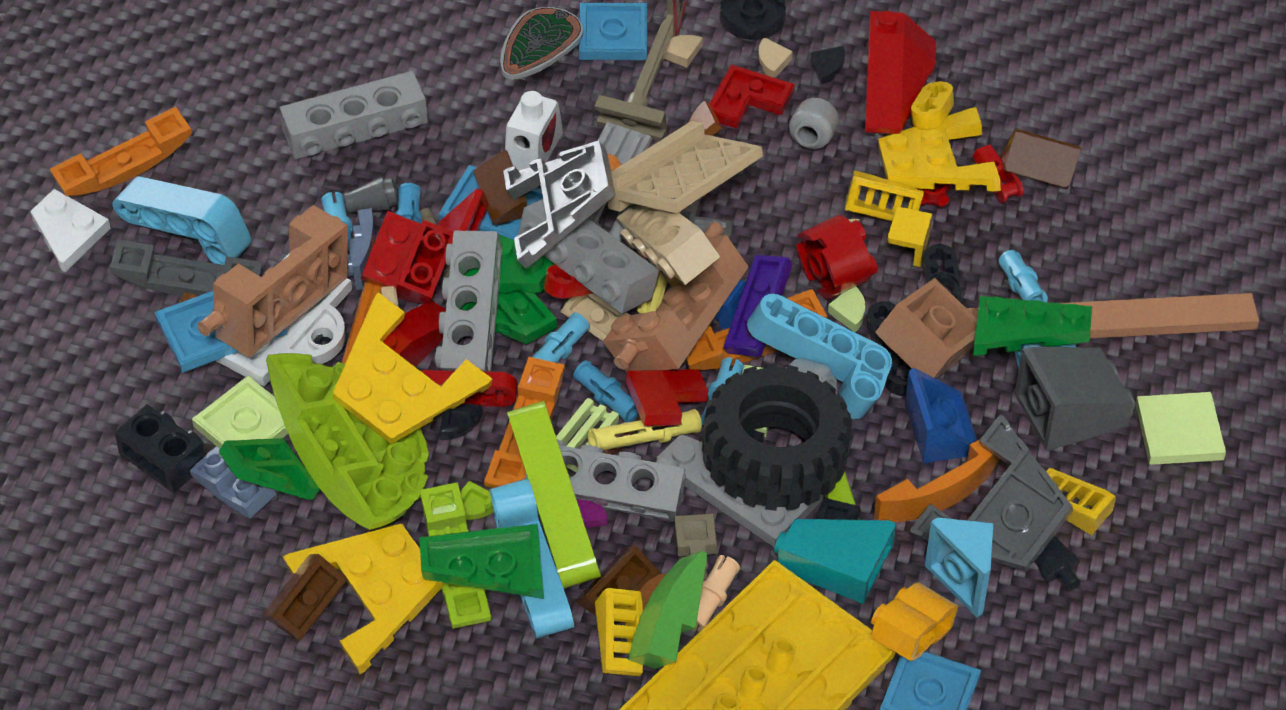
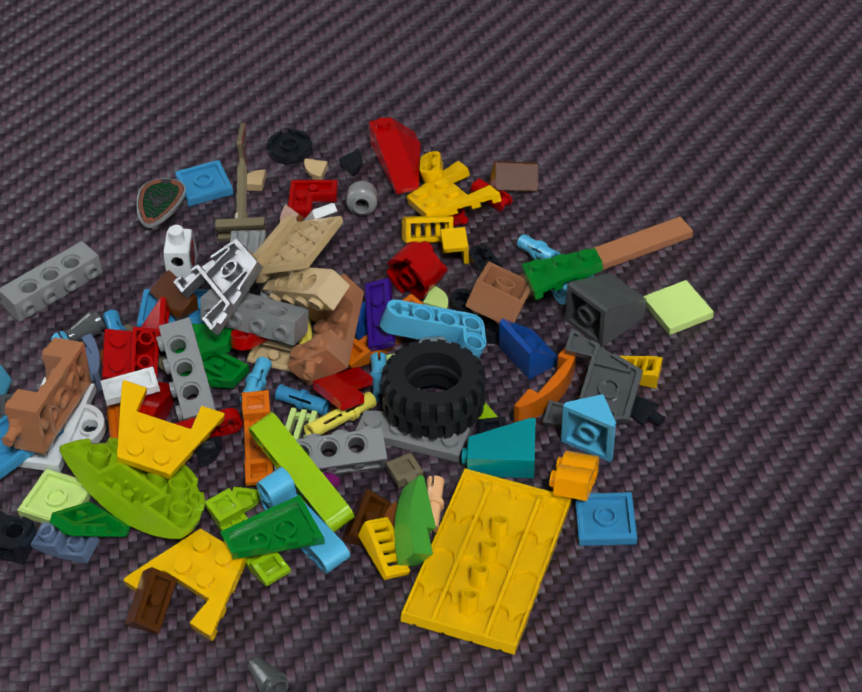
camera: 20 degrees left, 5 degrees down
(408, 296) = (113, 386): none -> white tile
(743, 132) = (322, 212): none -> white tile

